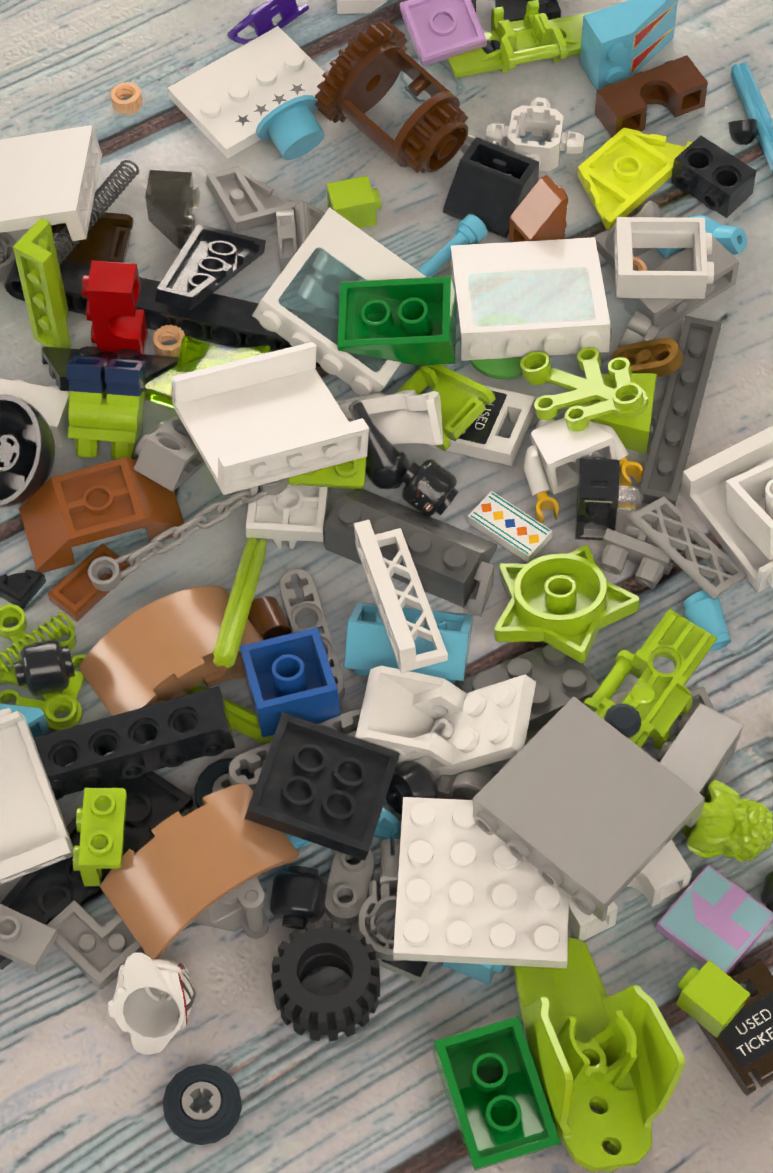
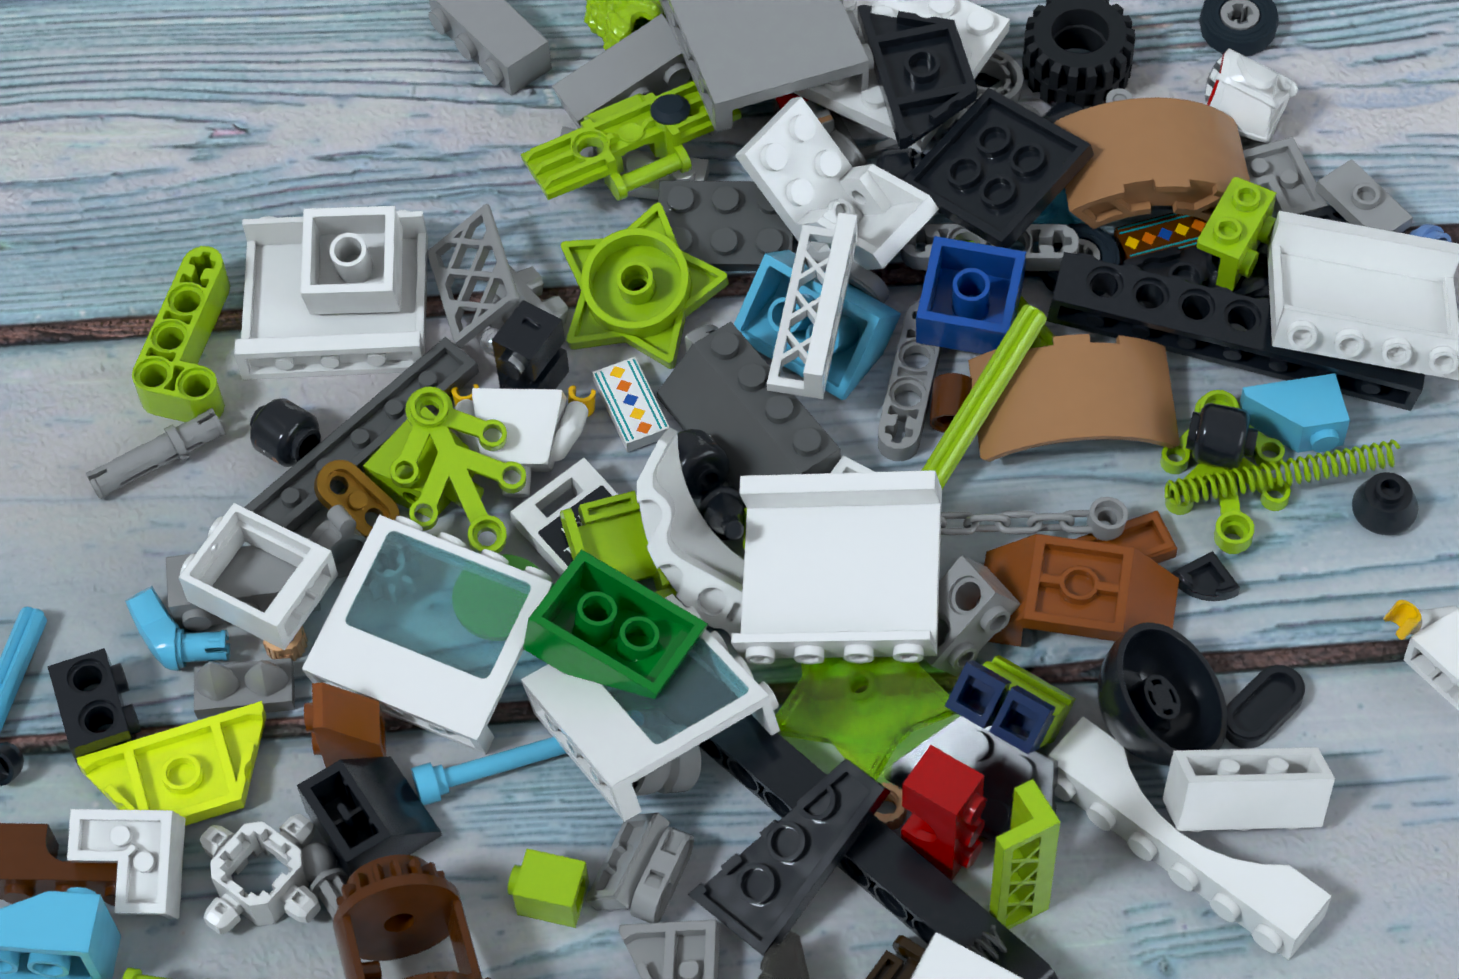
camera: 150 degrees left, 0 degrees up
(438, 838) = (918, 70): none -> black wing
(615, 104) = (147, 852): none -> white panel
(708, 615) = (506, 210): medium azure cone -> none
(734, 385) = (284, 431): none -> black head

